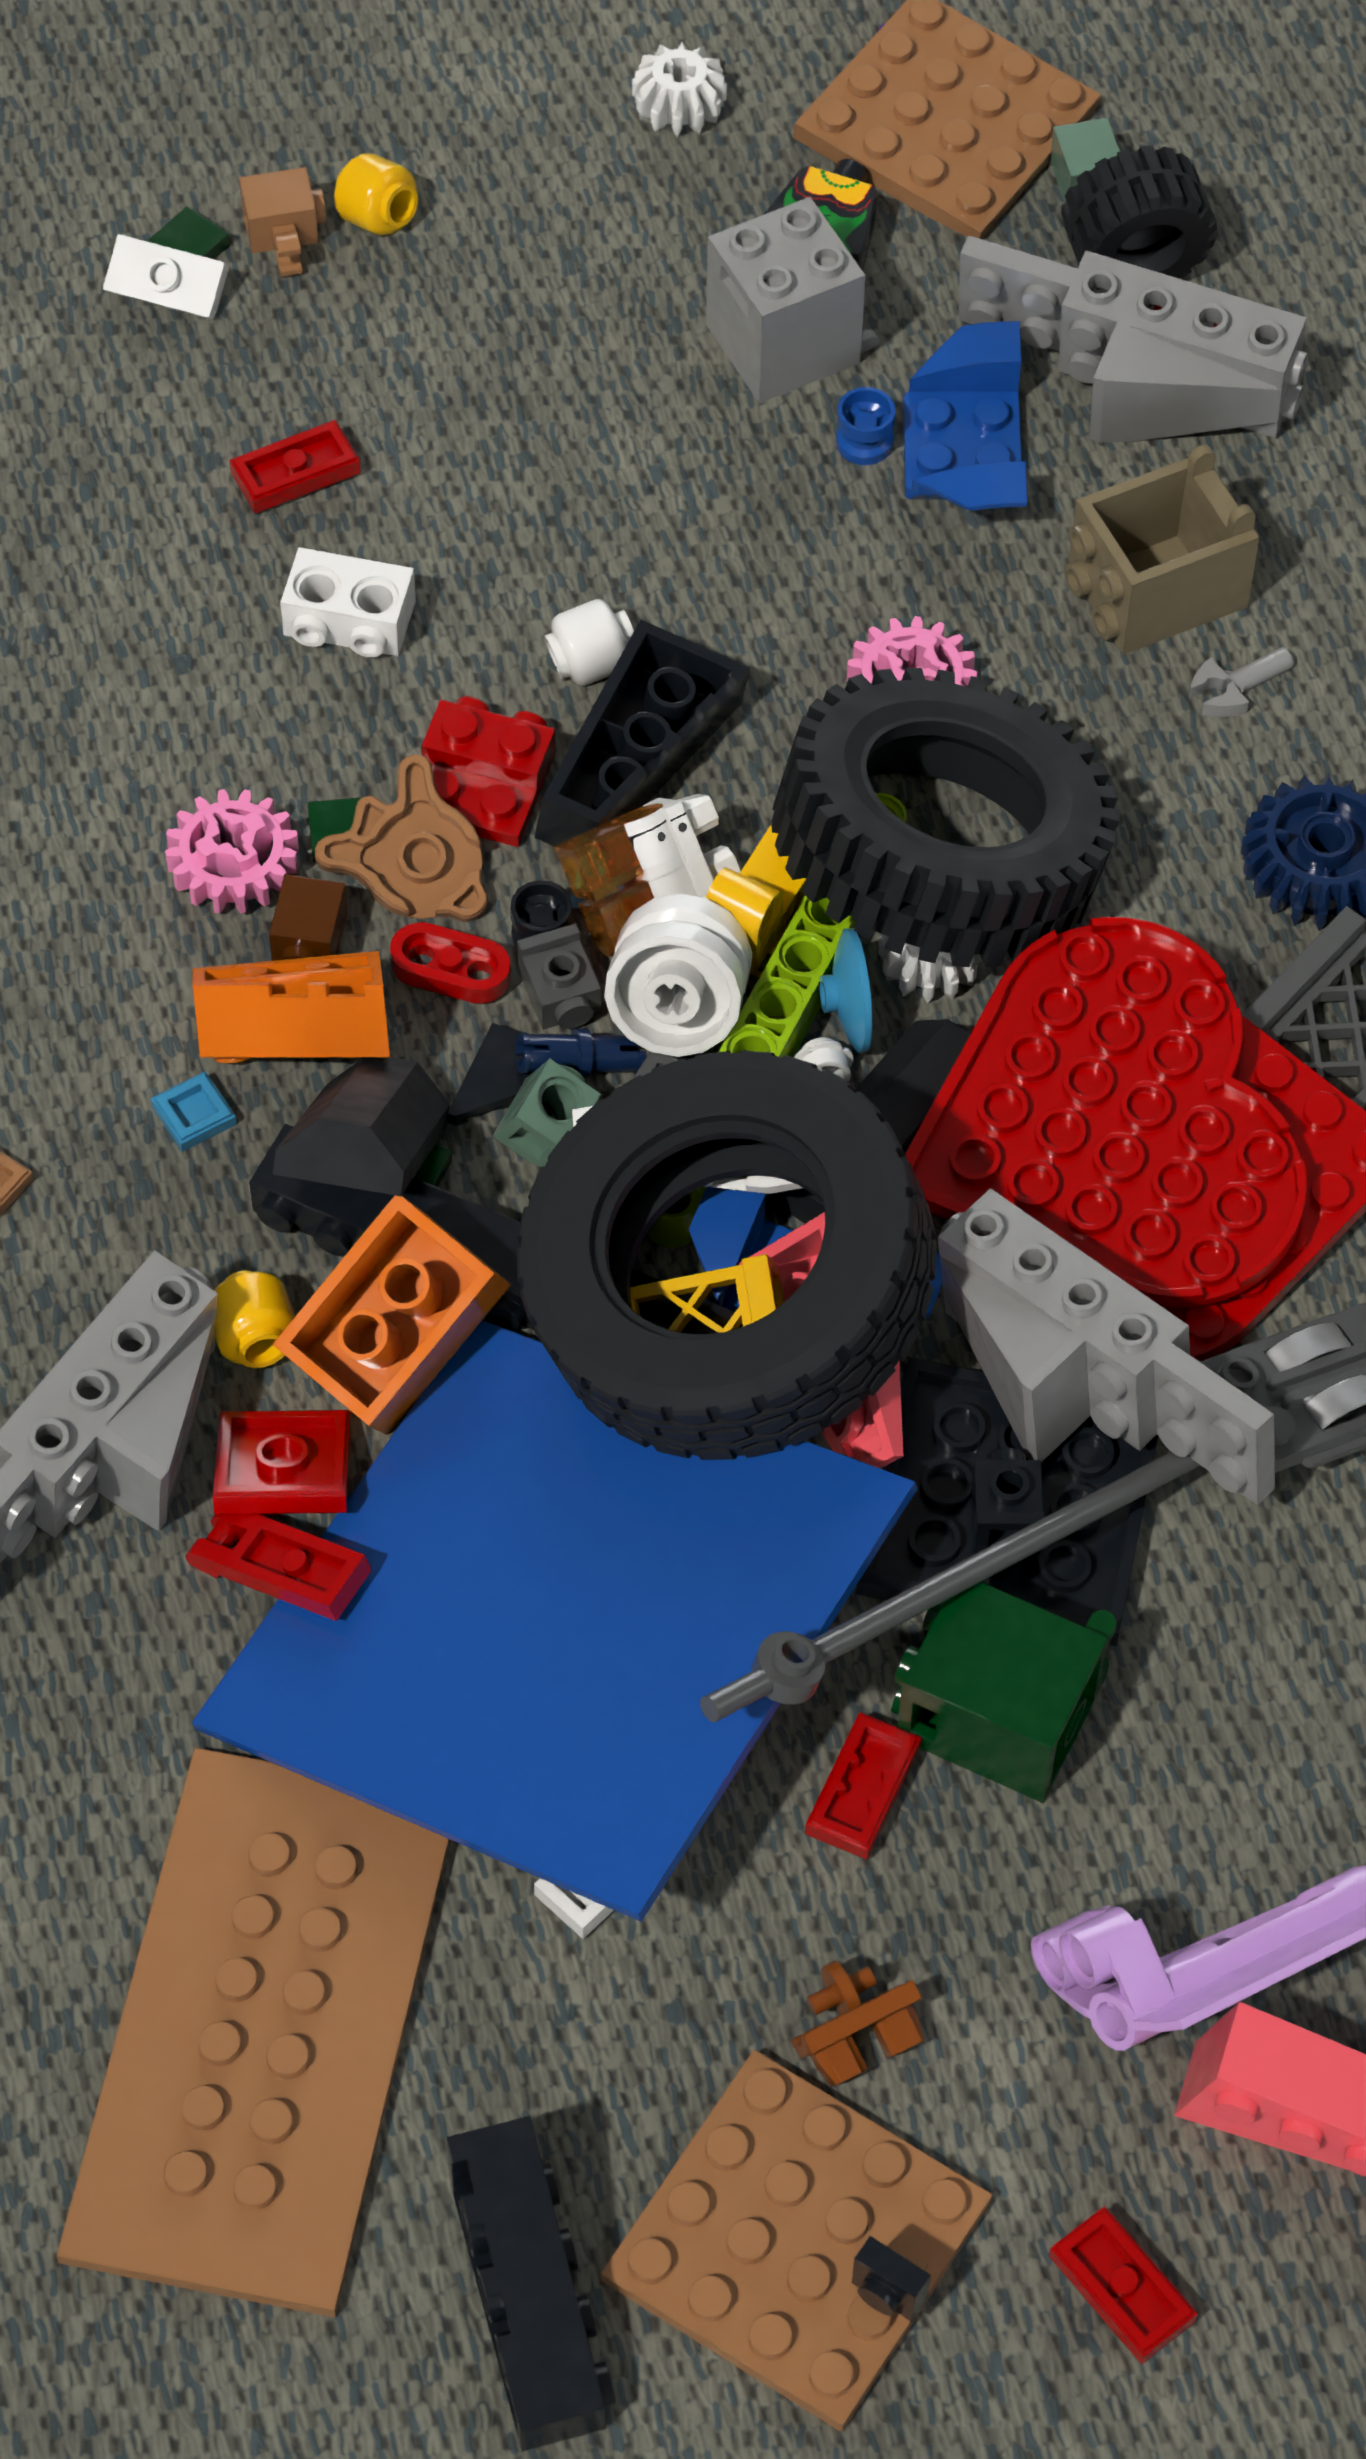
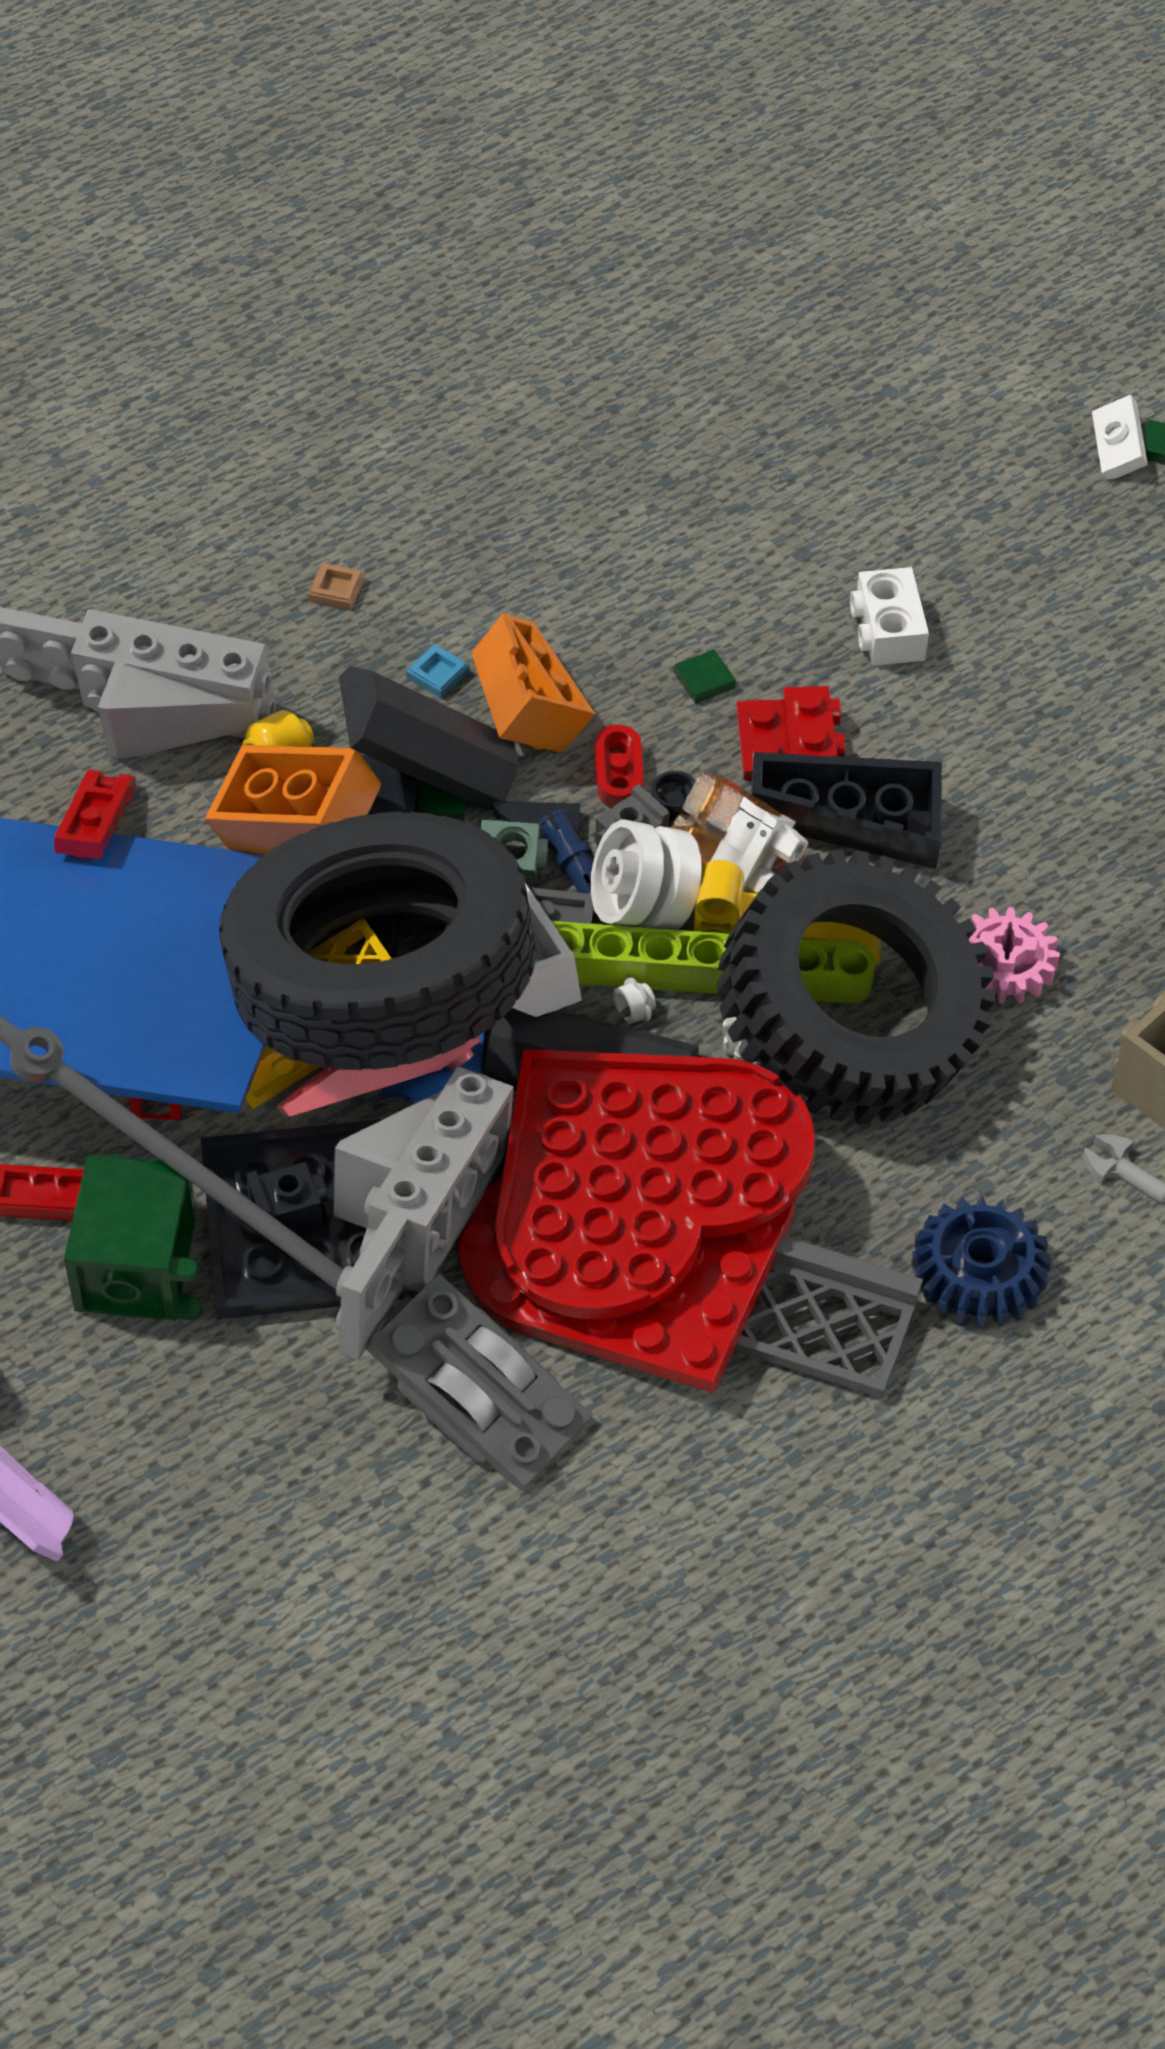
camera: 70 degrees right, 5 degrees down
(229, 846) = (650, 621): bright pink gear -> none
(282, 1462) = (170, 792): red plate -> none
(295, 466) = (997, 556): red plate -> none
(308, 918) = (608, 677): reddish brown brick -> none
(412, 853) = (700, 715): medium nougat tile -> none
(588, 641) = (936, 745): white head -> none
(849, 991) = (686, 989): dark azure dish -> none

